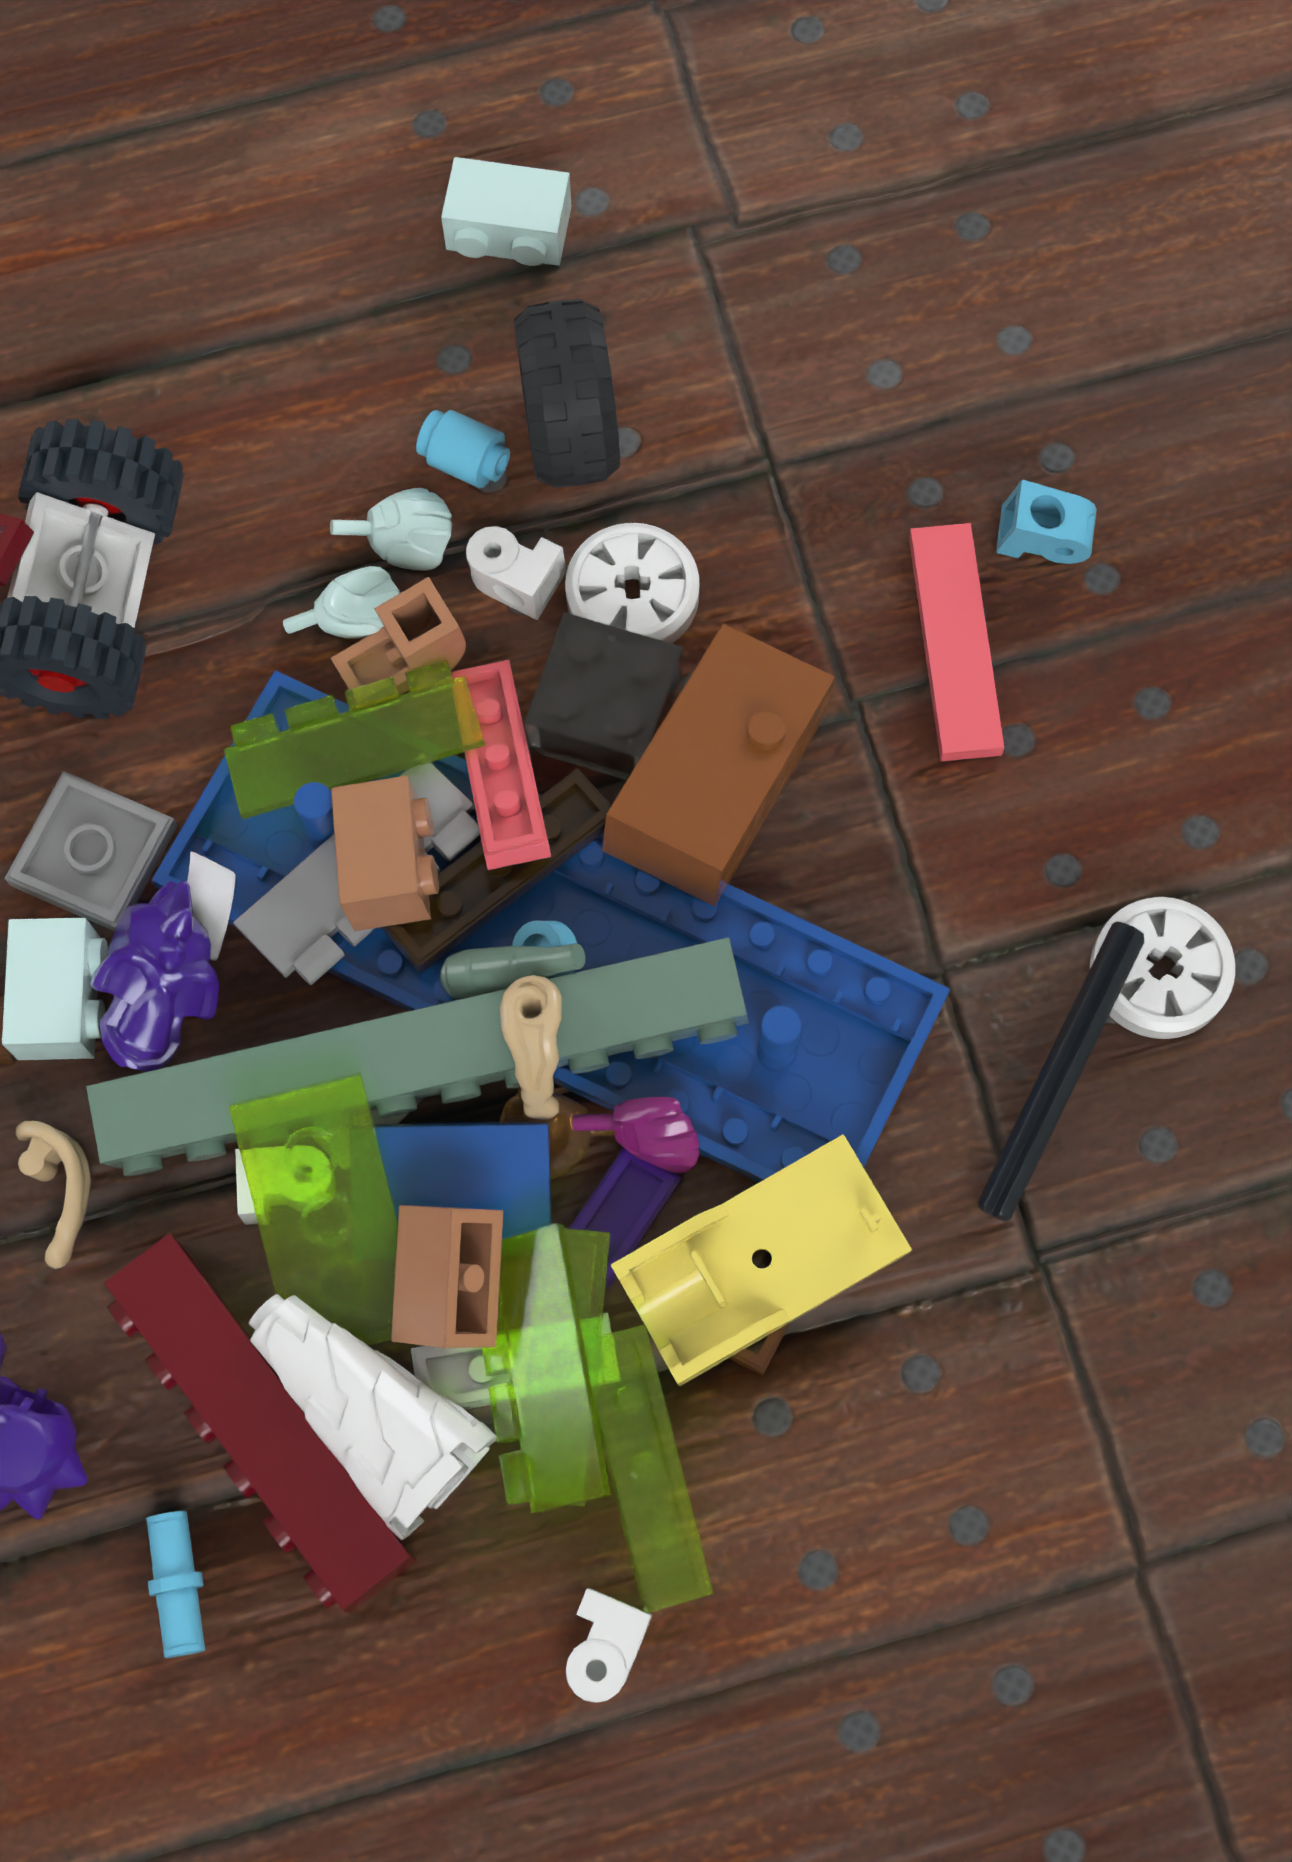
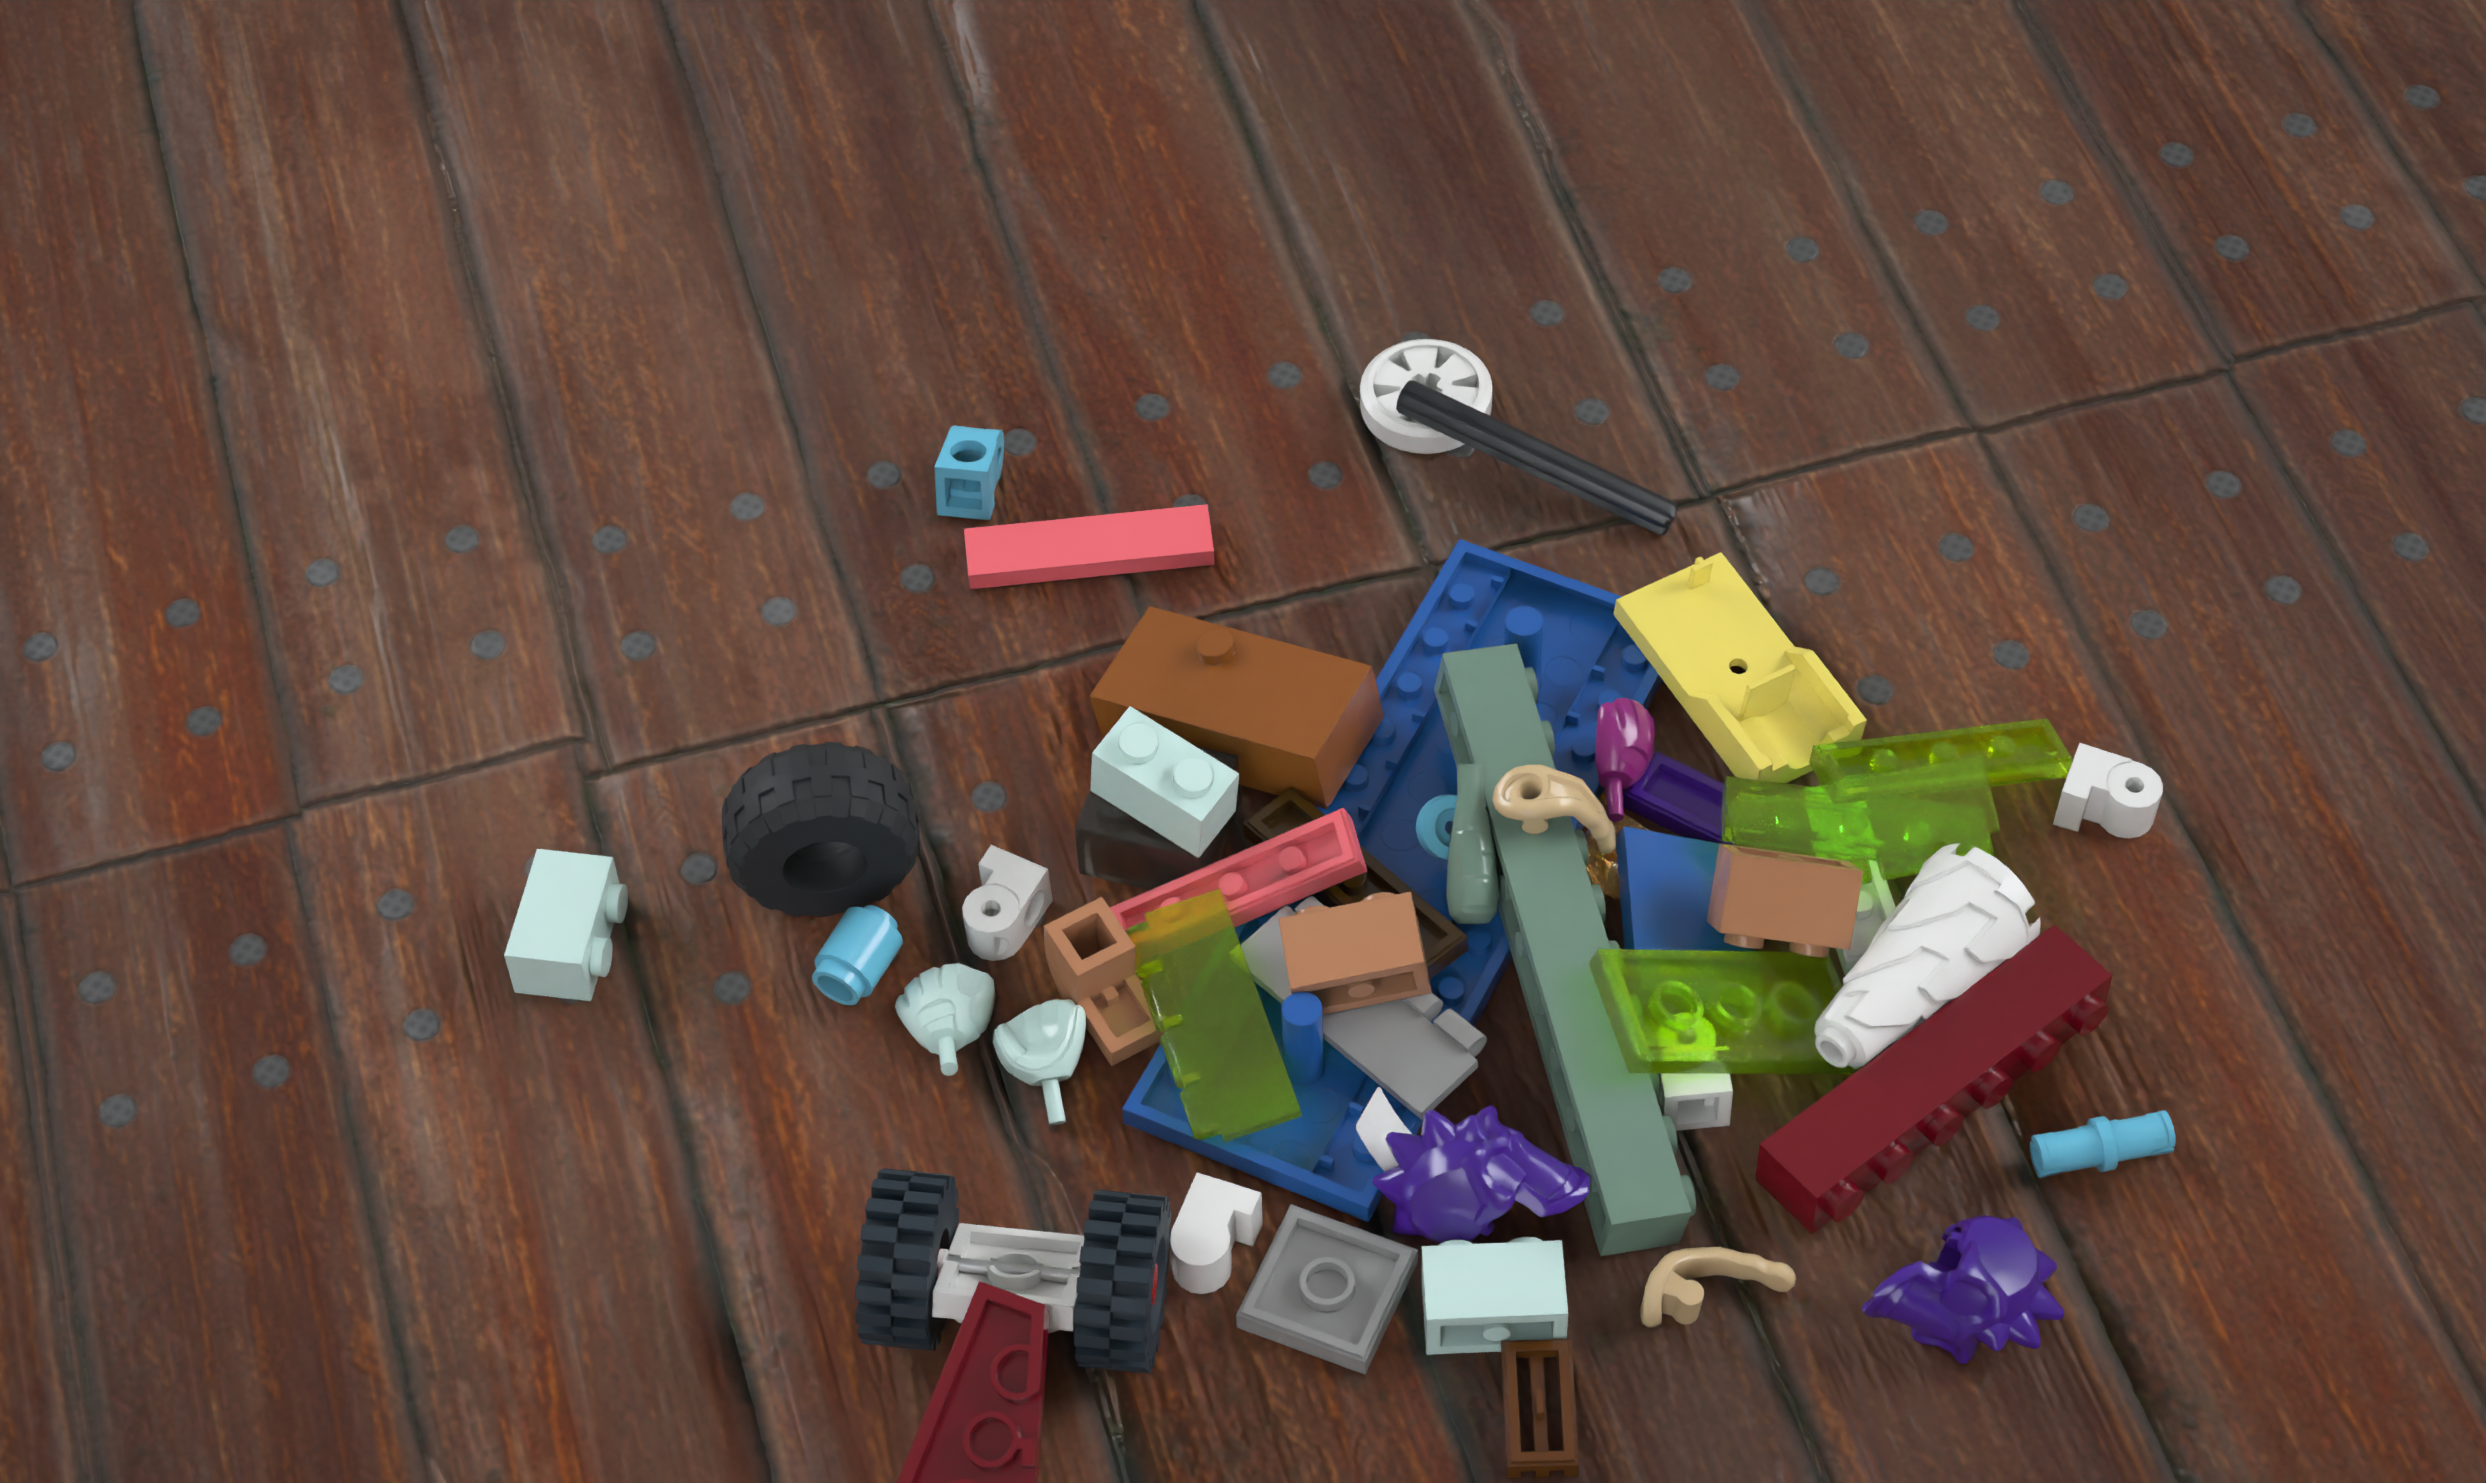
camera: 90 degrees left, 20 degrees down
(147, 746) = (1207, 1228): none -> white leg
(576, 673) = (1164, 781): none -> light aqua brick
(642, 554) = (996, 789): white wheel -> none

